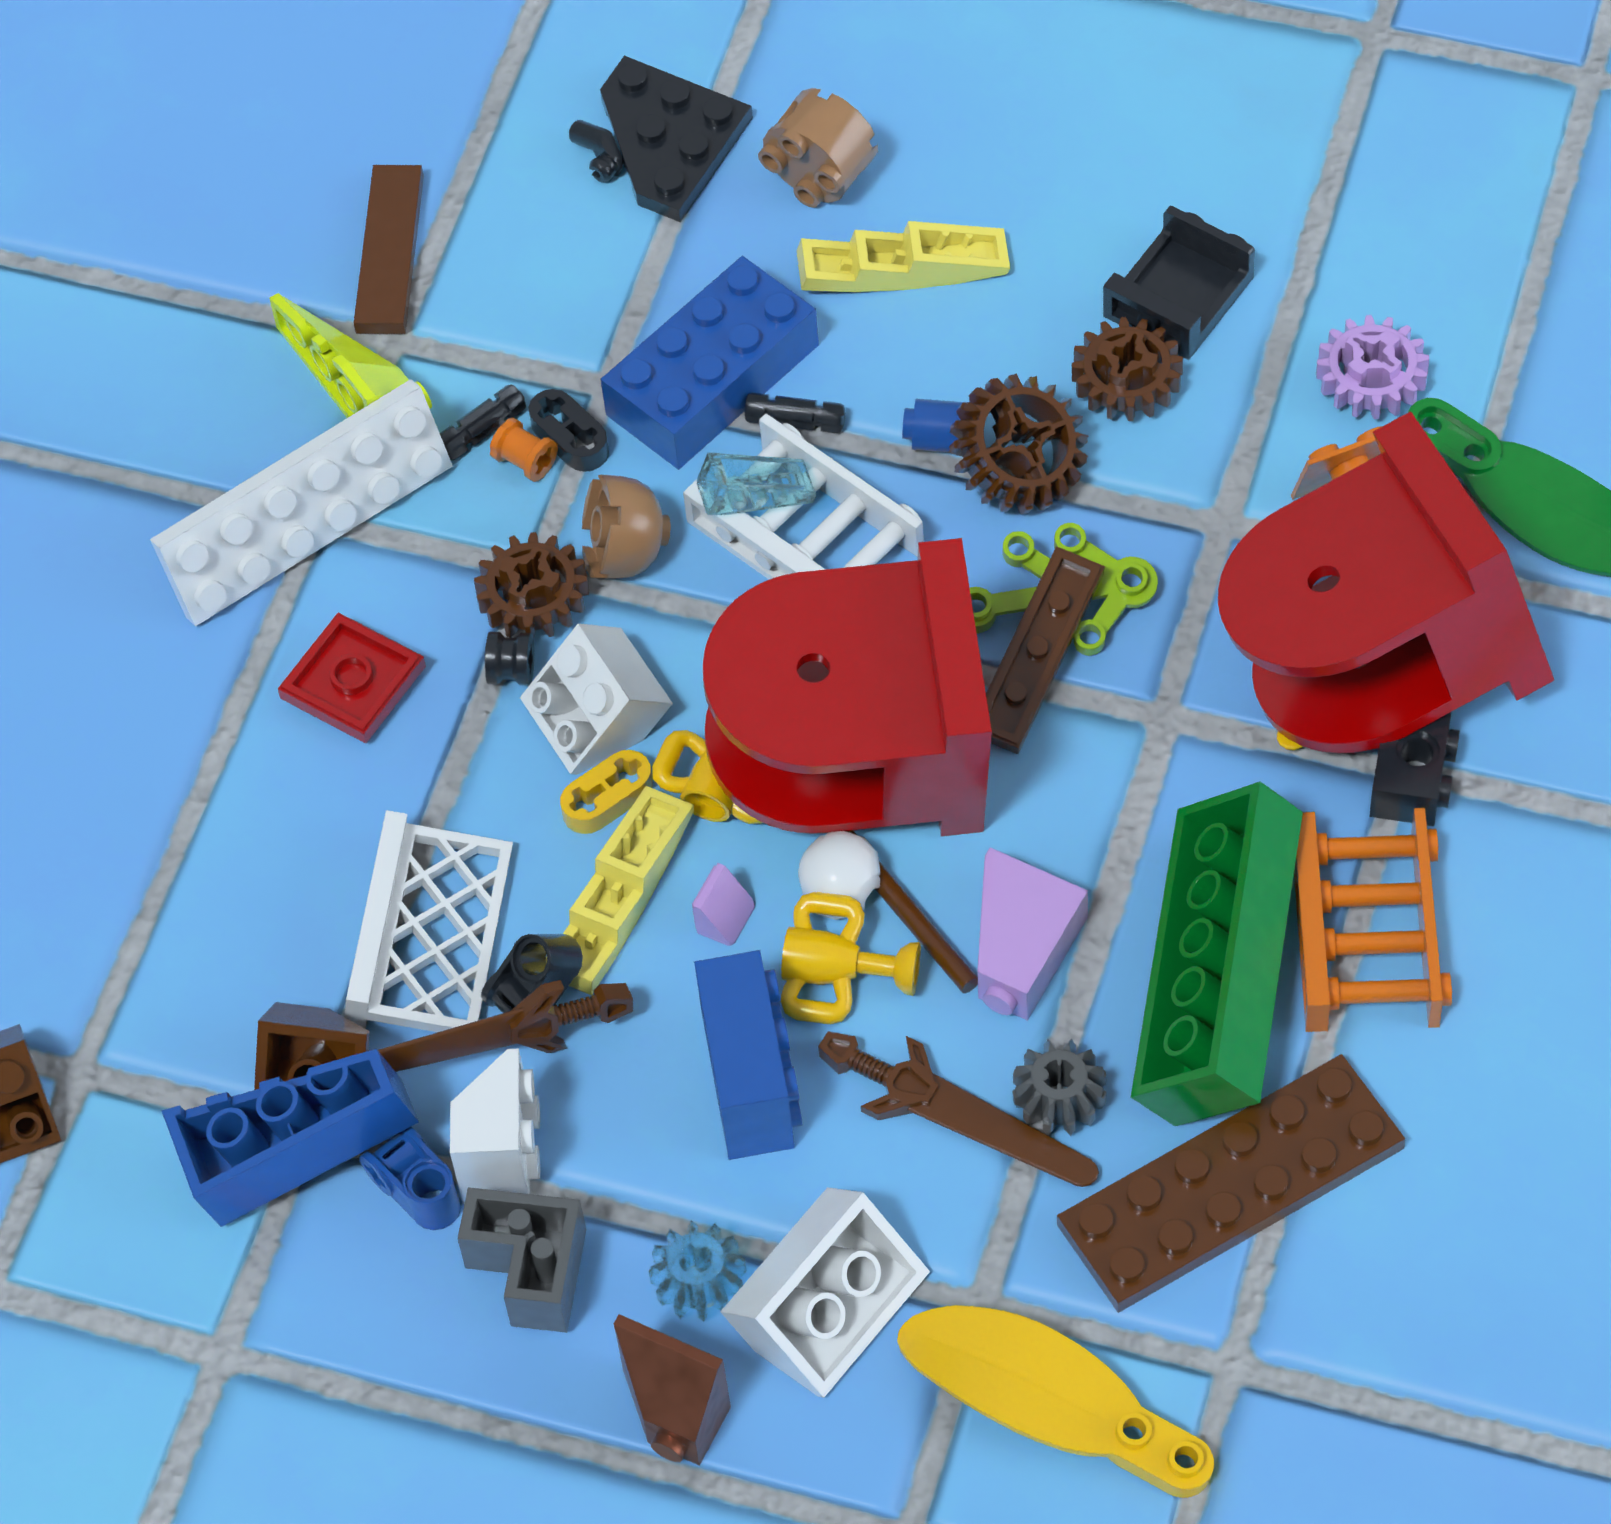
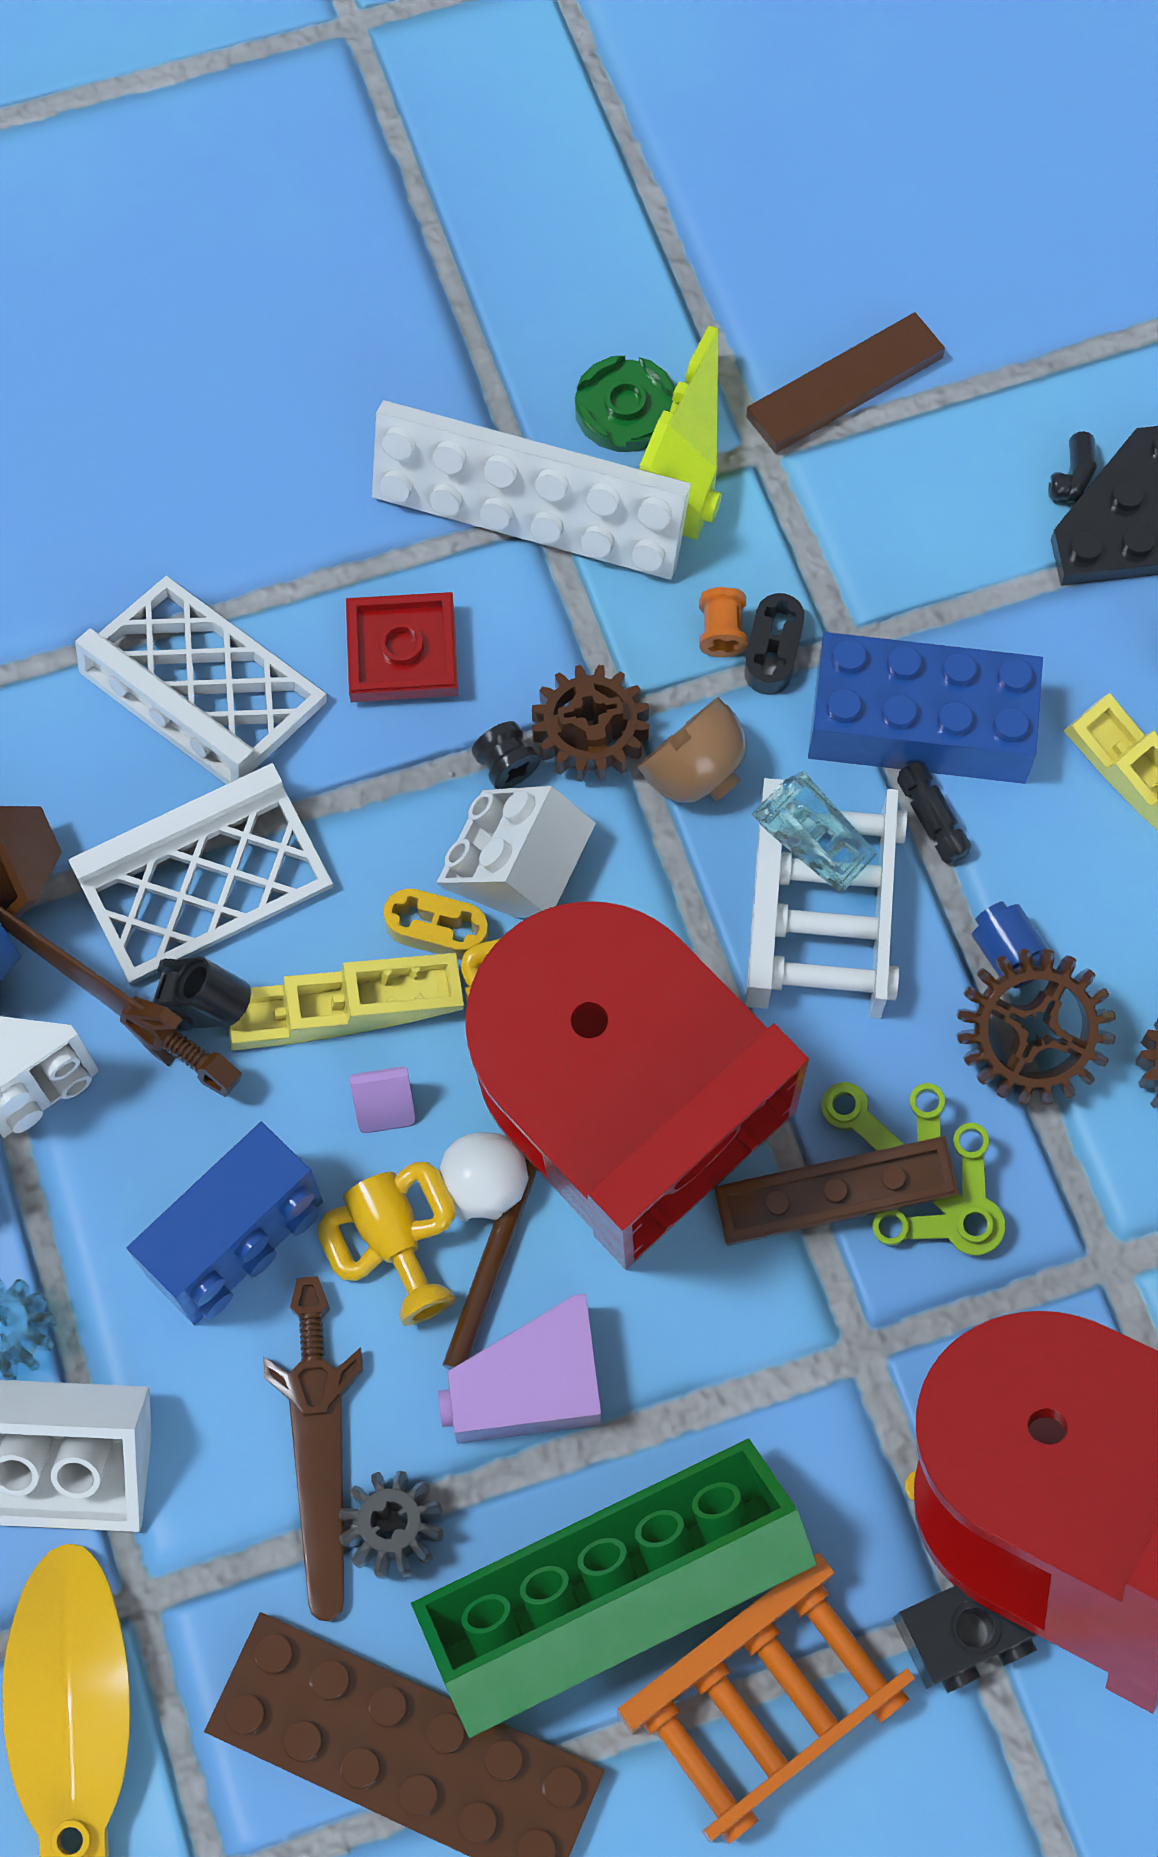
camera: 50 degrees right, 10 degrees up
(263, 866) = (163, 703): none -> white fence
(271, 405) = (622, 402): none -> green tile
(482, 421) = (728, 570): black axle -> none

